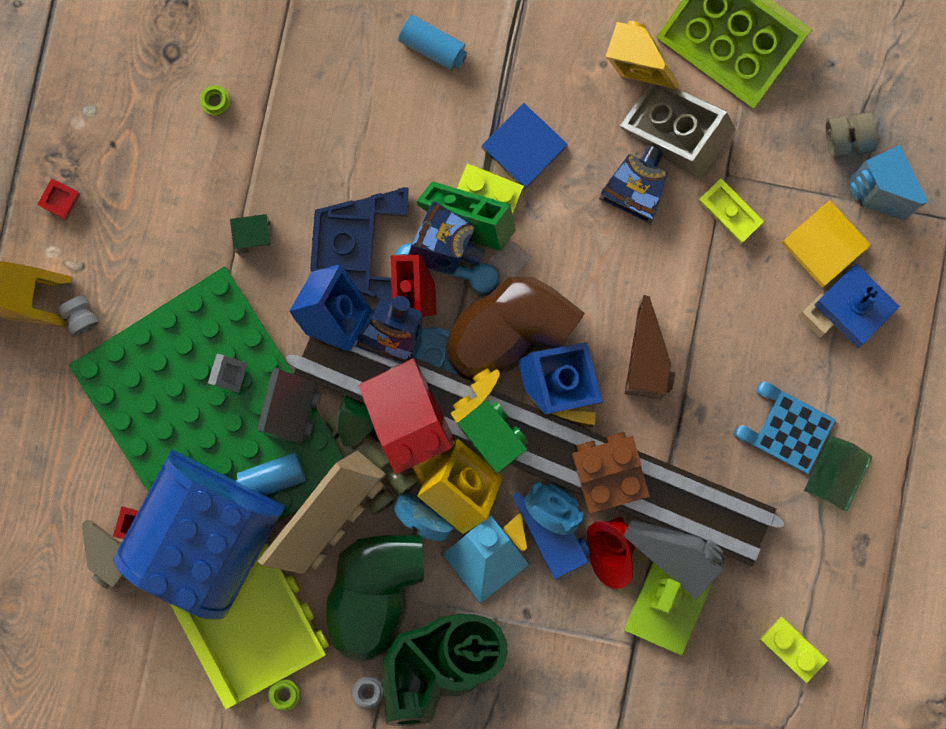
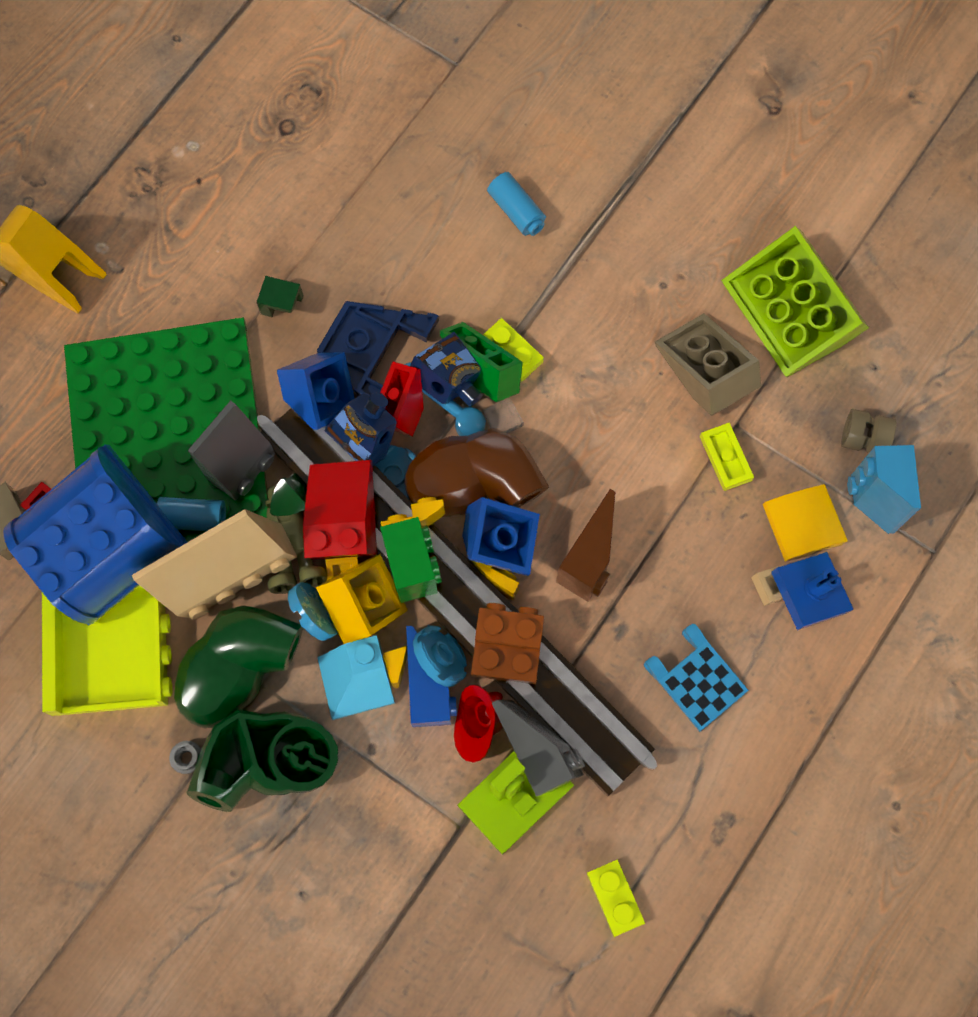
camera: 20 degrees right, 10 degrees down
(58, 199) = (128, 204): red plate -> none
(79, 317) = (93, 306): light grey wheel -> none
(214, 91) = (303, 170): lime plate -> none
(227, 373) = (197, 405): light grey plate -> none
(274, 697) = (98, 721): lime plate -> none
(524, 145) = (560, 324): blue tile -> none
(637, 185) = (647, 398): torso -> none
(638, 56) = (696, 283): yellow slope -> none
(838, 472) = (731, 742): clear green panel -> none

